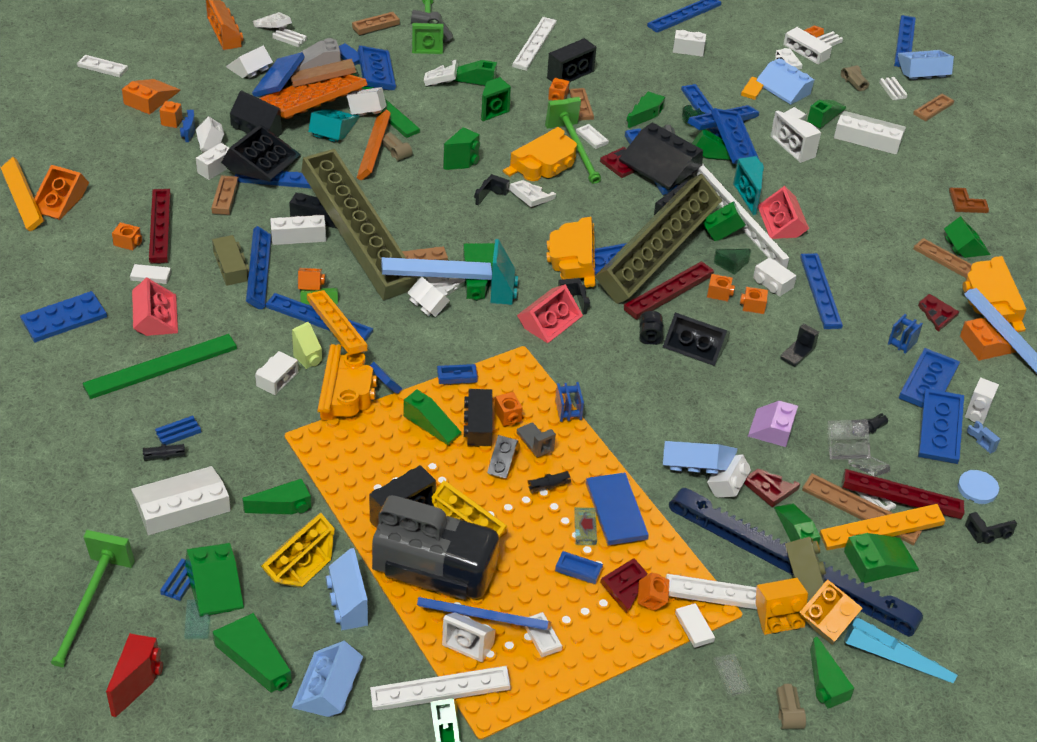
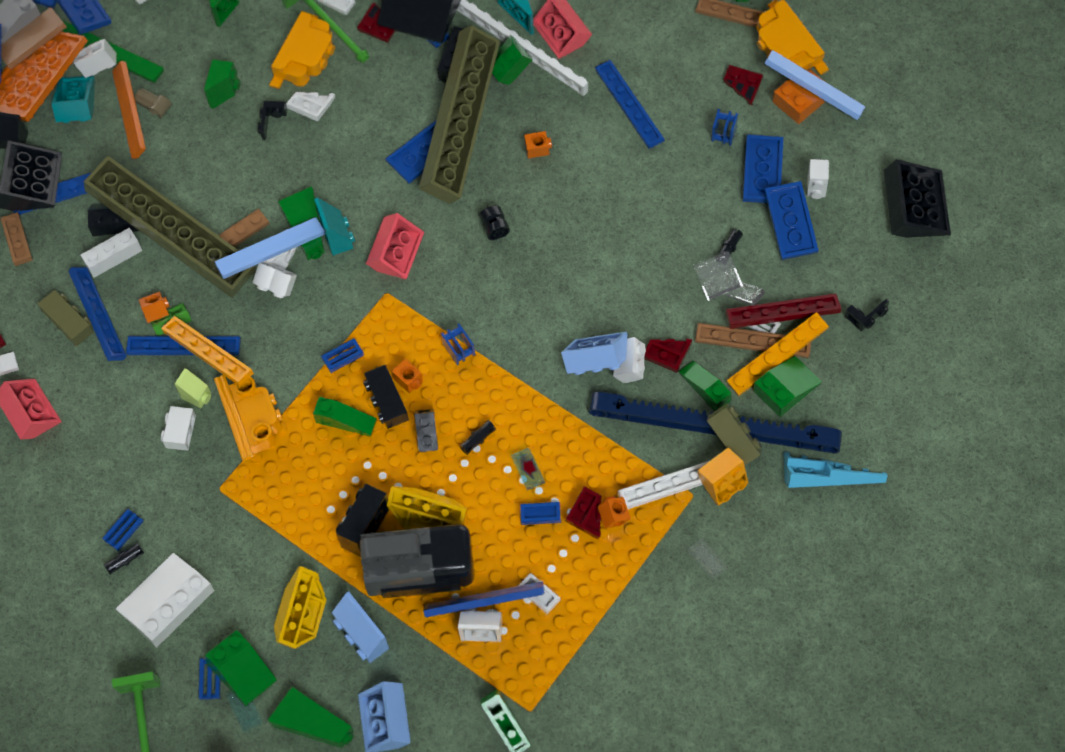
camera: 15 degrees left, 20 degrees up
(159, 366) = (66, 467): green tile -> none
(283, 499) = (255, 561): green slope -> none
(385, 378) = (280, 390): blue tile -> none
(440, 688) = (478, 682): white tile -> none
(538, 442) = (445, 397): dark grey bracket -> none
(573, 250) = (384, 162): light orange brick -> none
(576, 288) = (402, 205): black bracket -> none
(616, 509) = (546, 438): blue tile -> none
(668, 290) = (491, 167): dark red plate -> none
(694, 625) = (659, 526): white tile -> none
(696, 339) = (539, 216): black slope -> none
(732, 259) = (535, 104): clear green slope -> none
(754, 300) = (577, 140): orange brick -> none
(773, 423) = (644, 282): lavender slope -> none
(774, 276) = (581, 109): white brick -> none
(790, 712) = (767, 573): dark tan piece -> none
(803, 346) = (636, 183): black bracket -> none
(830, 611) = (767, 467): light orange slope -> none
(830, 682) = (788, 529): green slope -> none
(978, 486) = (843, 270): light blue tile -> none
(984, 437) = (832, 215): medium blue plate -> none

